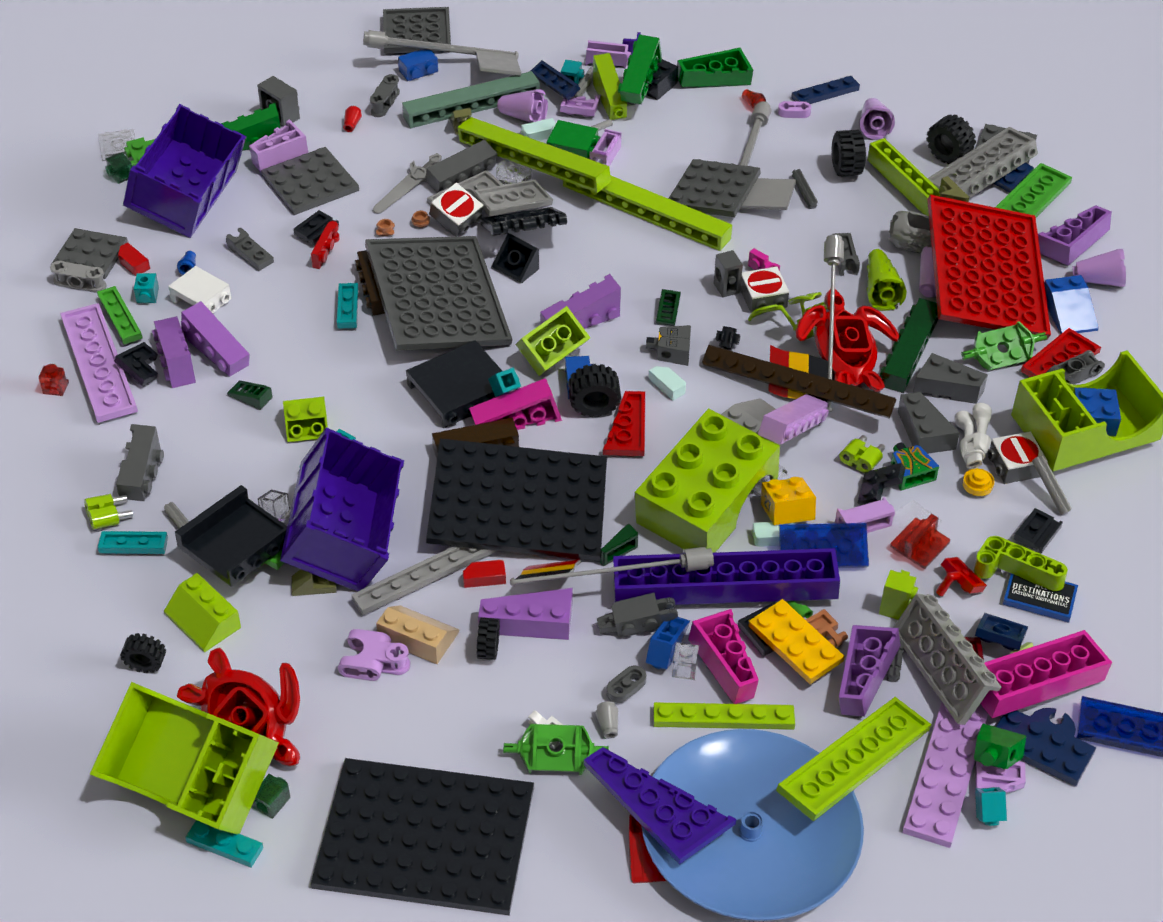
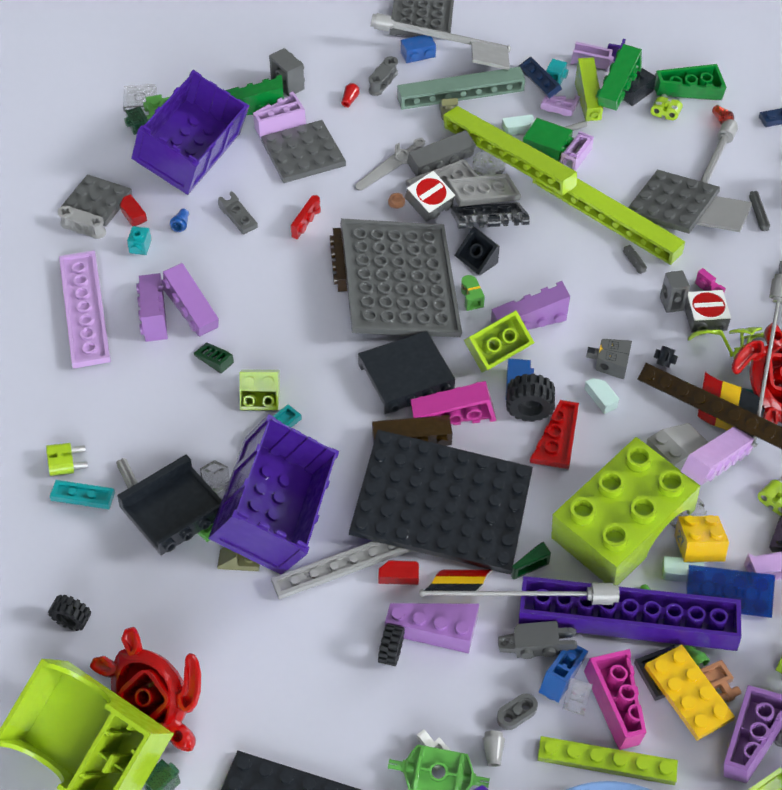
camera: 10 degrees right, 5 degrees up
(55, 375) = (43, 317): clear red brick -> none
(119, 315) = (111, 264): bright green plate -> none
(136, 362) = (116, 313): black plate -> none
(141, 463) = (103, 416): dark grey wedge -> none
(200, 286) = (186, 248): white panel -> none
(202, 613) = (131, 577): lime slope -> none
(313, 227) = (298, 197): black plate -> none
(347, 305) = (316, 279): teal plate -> none
(375, 656) = (284, 646): lavender piece -> none
(385, 227) = (363, 205): nougat plate -> none
(420, 633) = (325, 625): tan slope -> none
(504, 382) = (447, 379): teal brick -> none
(519, 301) = (473, 293): none -> bright green leg
(526, 105) = (508, 100): lavender cone -> none
(585, 82) = (567, 82): light grey axle -> none
(672, 296) = (615, 306): dark green slope -> none
(682, 249) = (635, 259): none -> dark grey axle
(696, 98) = (666, 108): none -> lime piece
(794, 109) = (760, 129): lavender beam -> none

